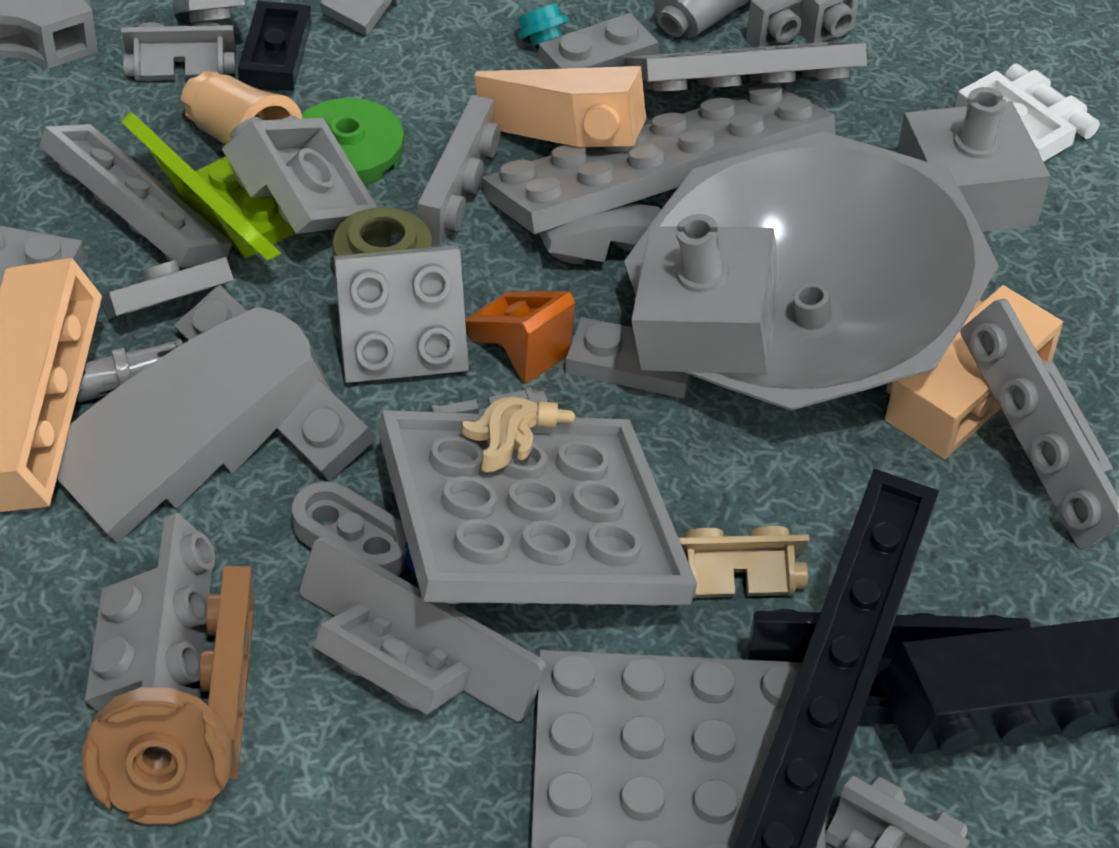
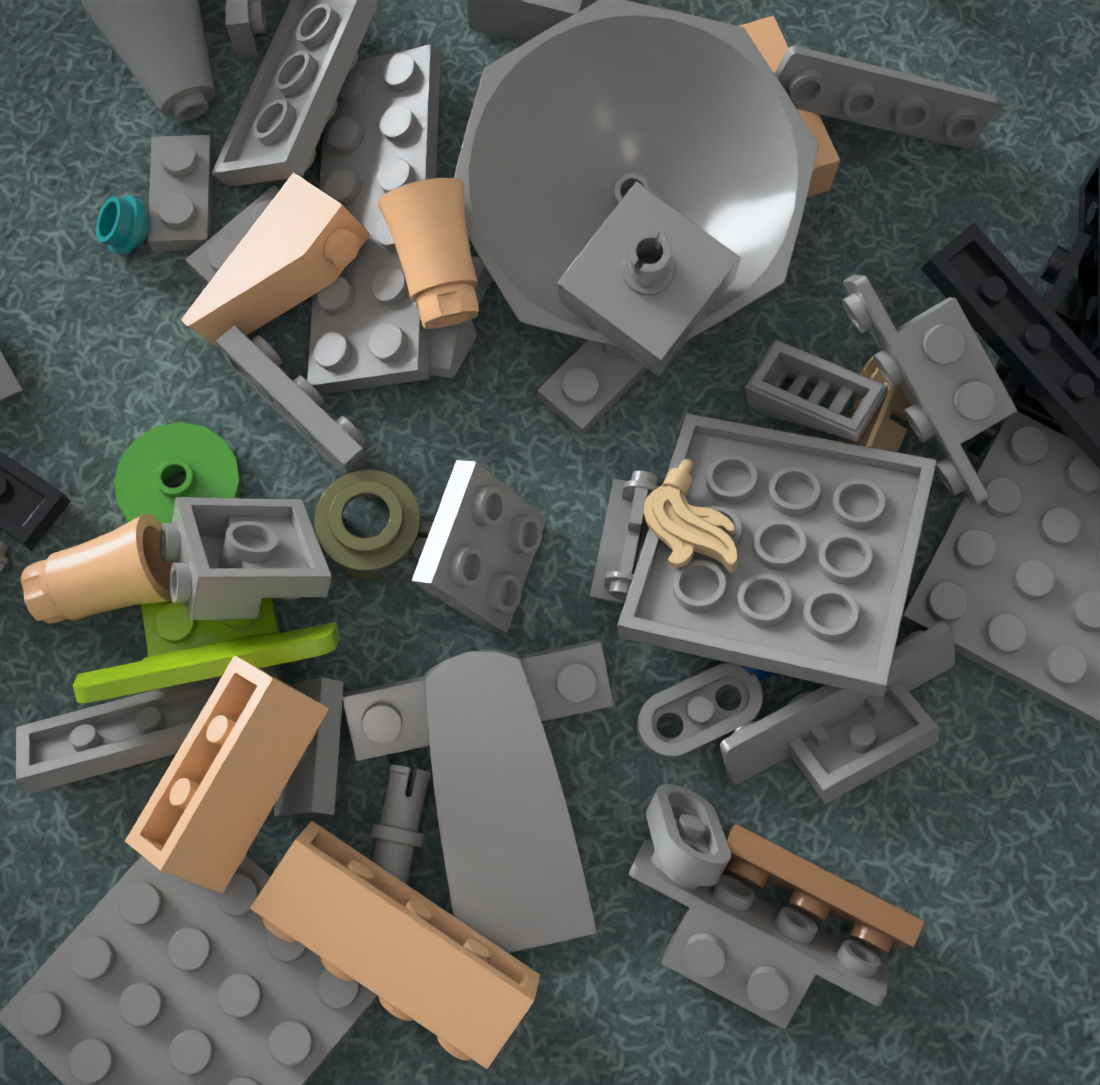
camera: 60 degrees left, 25 degrees up
(108, 217) = (226, 776): none -> light nougat brick
(150, 784) = (912, 995): medium nougat plate -> none
(220, 535) = (687, 836): none -> light grey plate
(530, 327) = (536, 444): orange slope -> none
(636, 165) = (433, 249): none -> light nougat plant
(710, 486) = (789, 362): none -> light grey slope
(775, 542) = (942, 375): none -> light grey bracket

